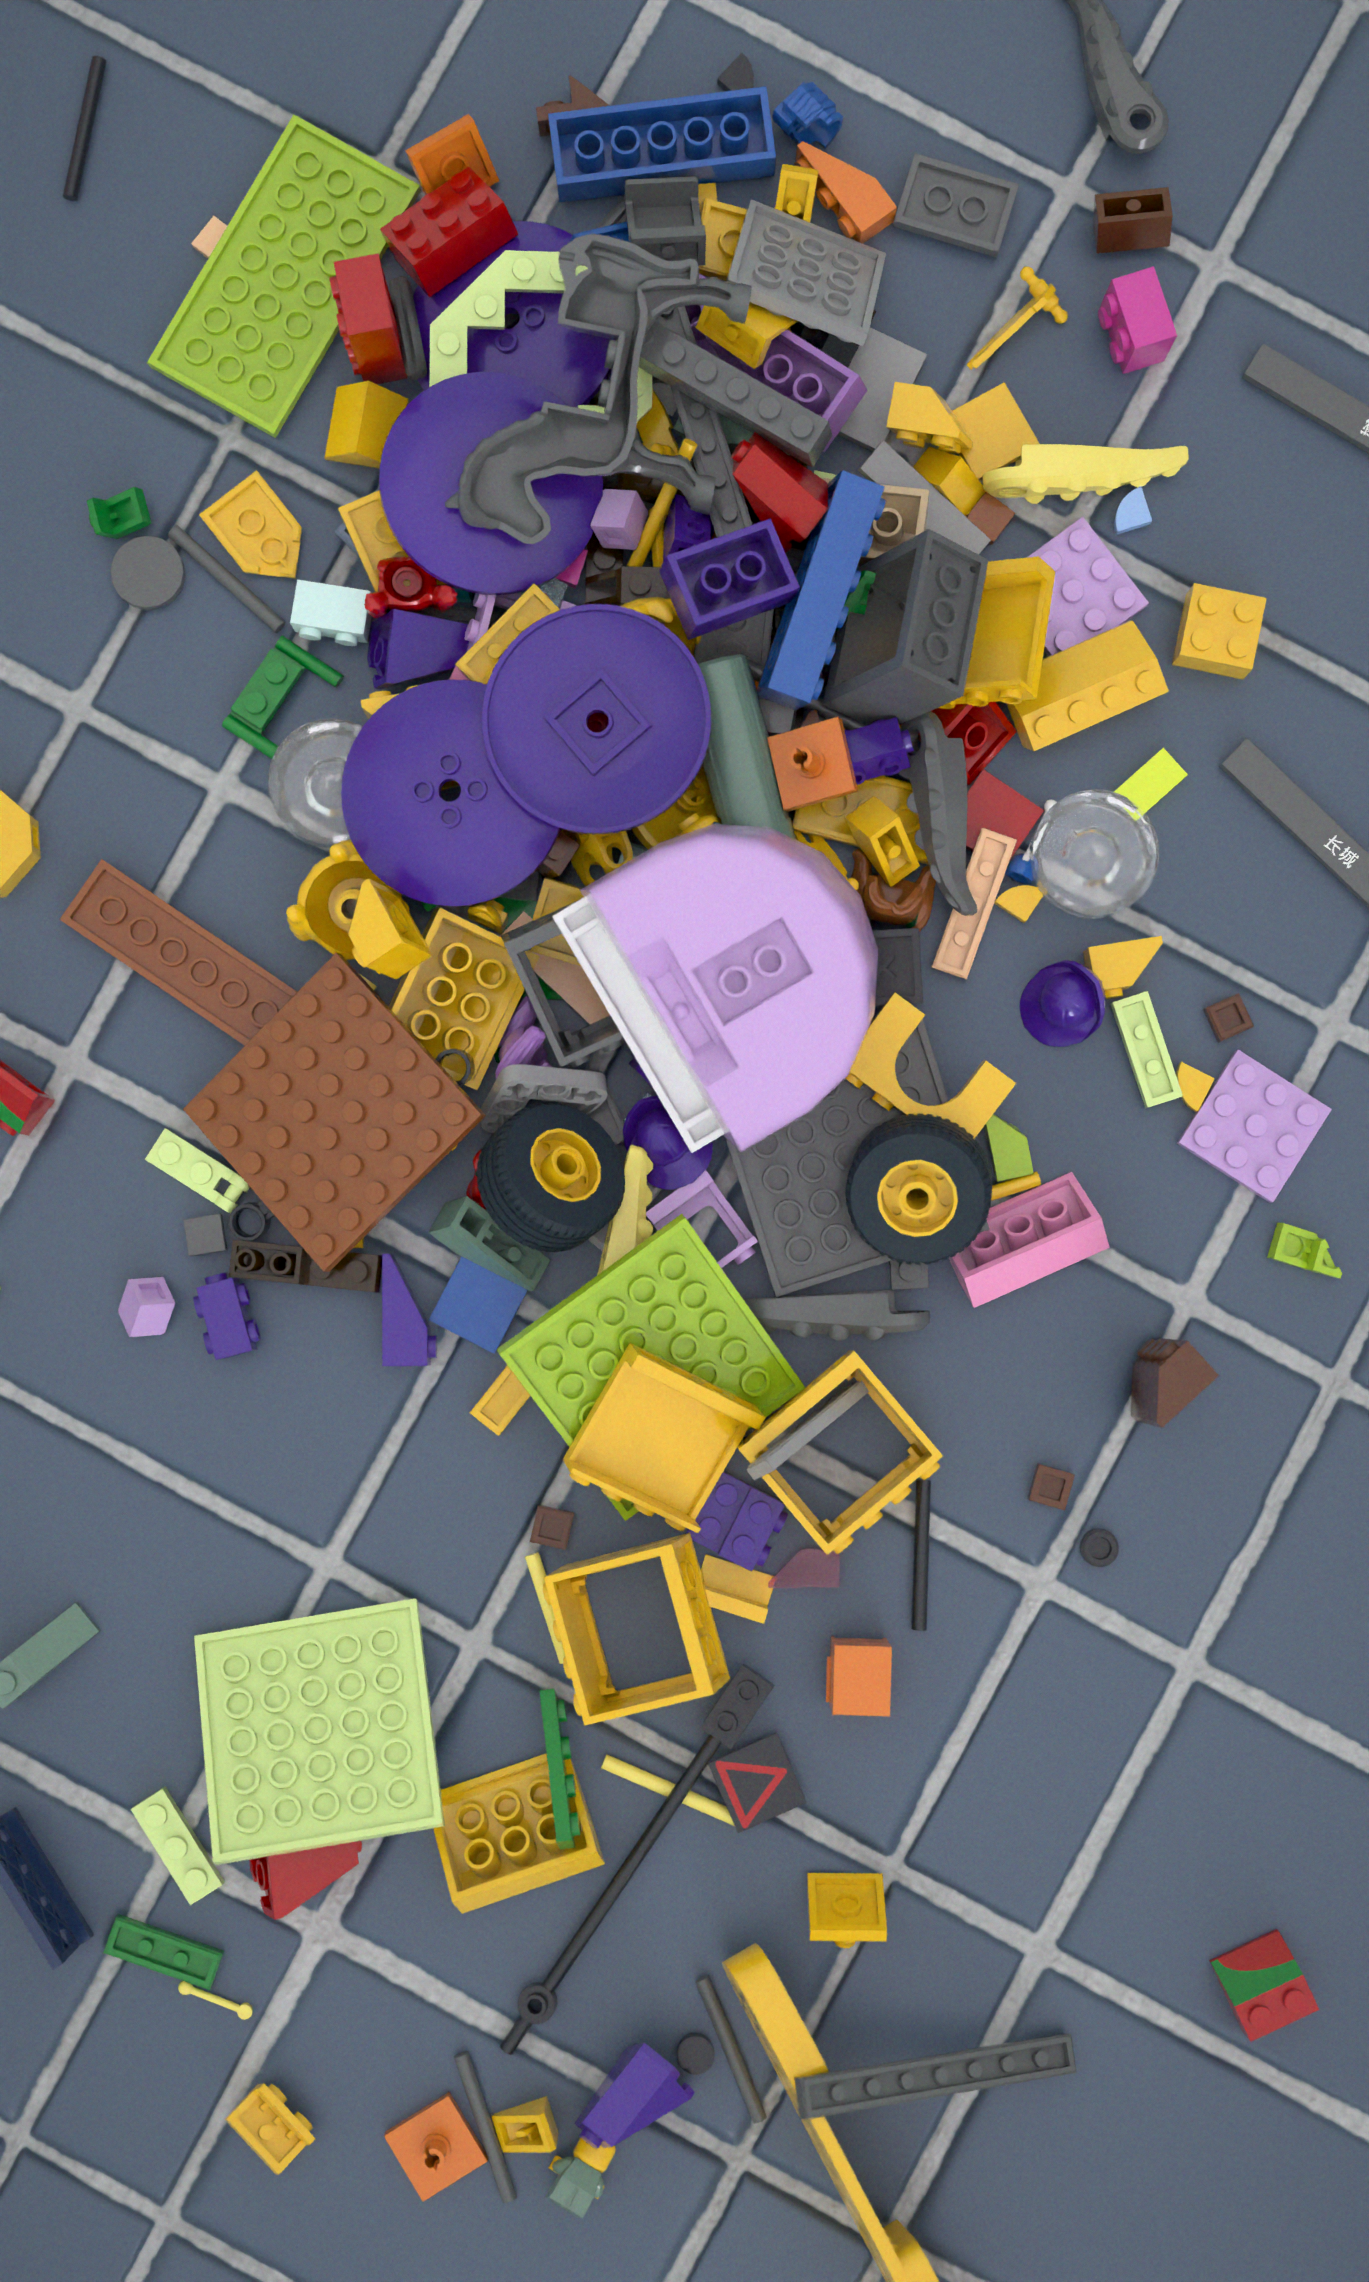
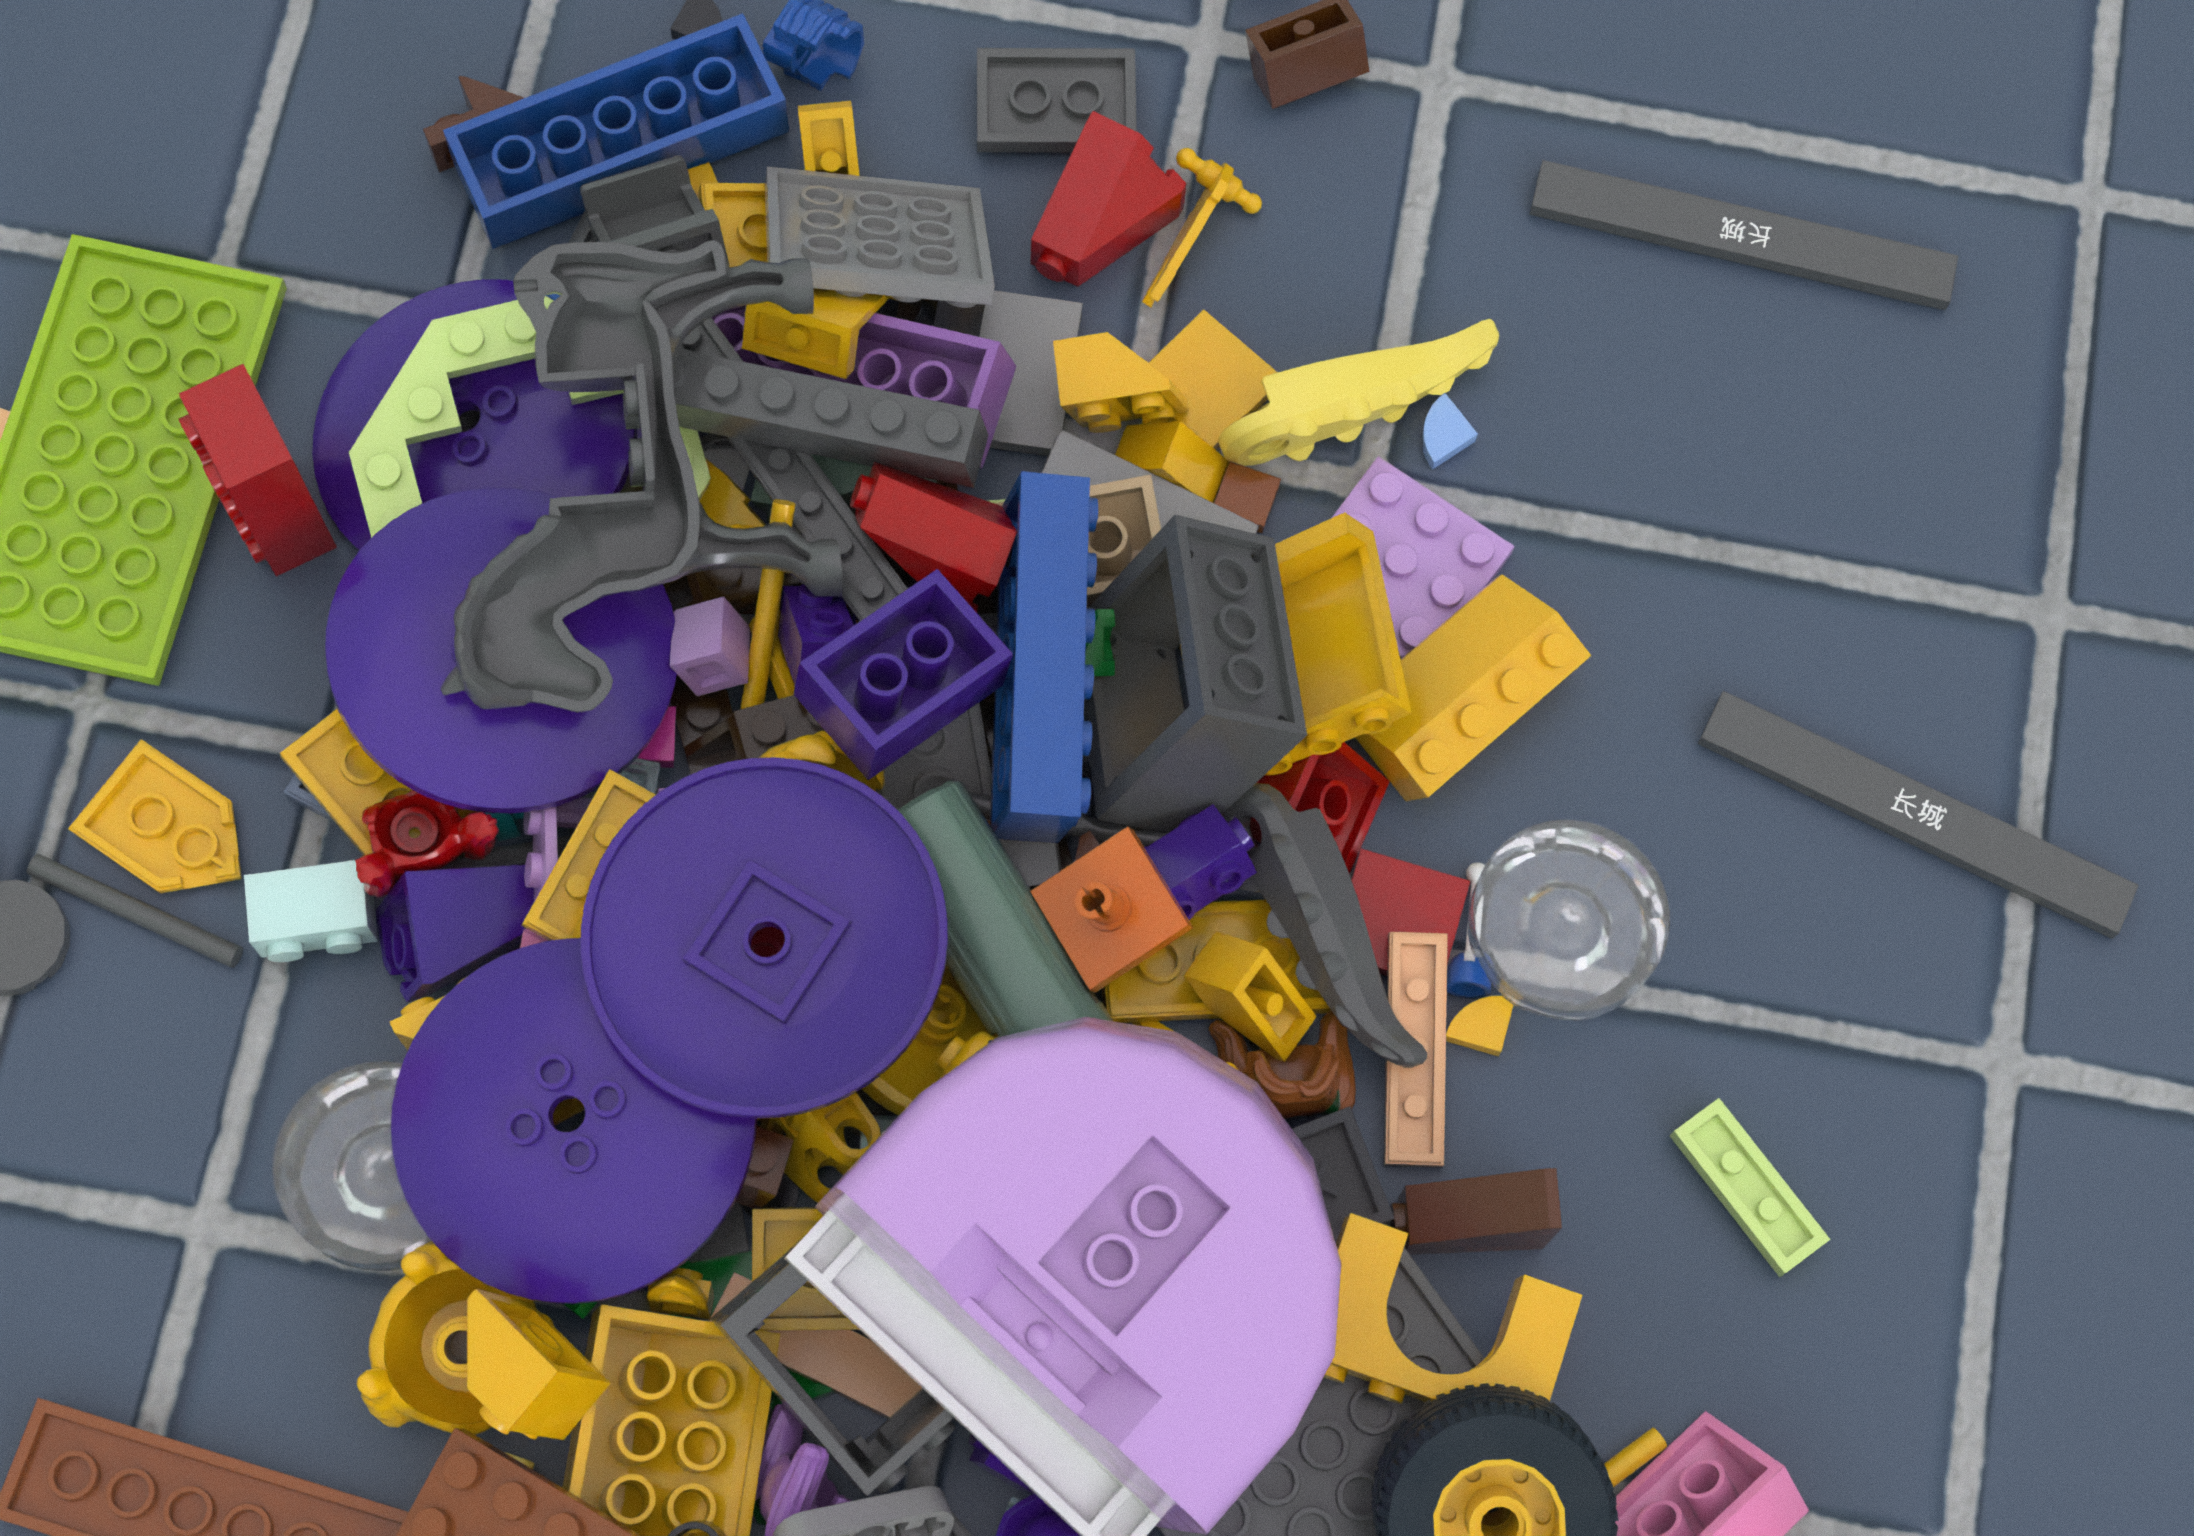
camera: 20 degrees left, 15 degrees down
(270, 688) = (243, 1056): green plate -> none
(362, 422) = (283, 627): yellow slope -> none
(408, 328) = (318, 475): dark grey axle -> none
(449, 231) = (342, 325): red brick -> none
(451, 152) = (323, 237): orange tile -> none
(852, 194) = (906, 124): orange slope -> none
(961, 290) = (1104, 203): none -> red slope
(975, 1014) = (1480, 1213): none -> reddish brown slope
(1008, 1149) = (1600, 1407): lime slope -> none
(1063, 1004) = (1607, 1155): dark purple hat -> none
(1120, 963) = (1661, 1073): yellow slope -> none
(1137, 320) = (1362, 174): dark pink brick -> none
(1153, 780) = (1613, 788): neon yellow tile -> none
(1193, 1085) = (1839, 1218): yellow tile -> none
(1219, 631) = (1628, 554): yellow brick -> none
(1228, 1017) = (1850, 1101): reddish brown tile -> none
(1254, 1126) = (1950, 1253): lavender plate -> none
(1302, 1250) = (2095, 1420): lime slope -> none

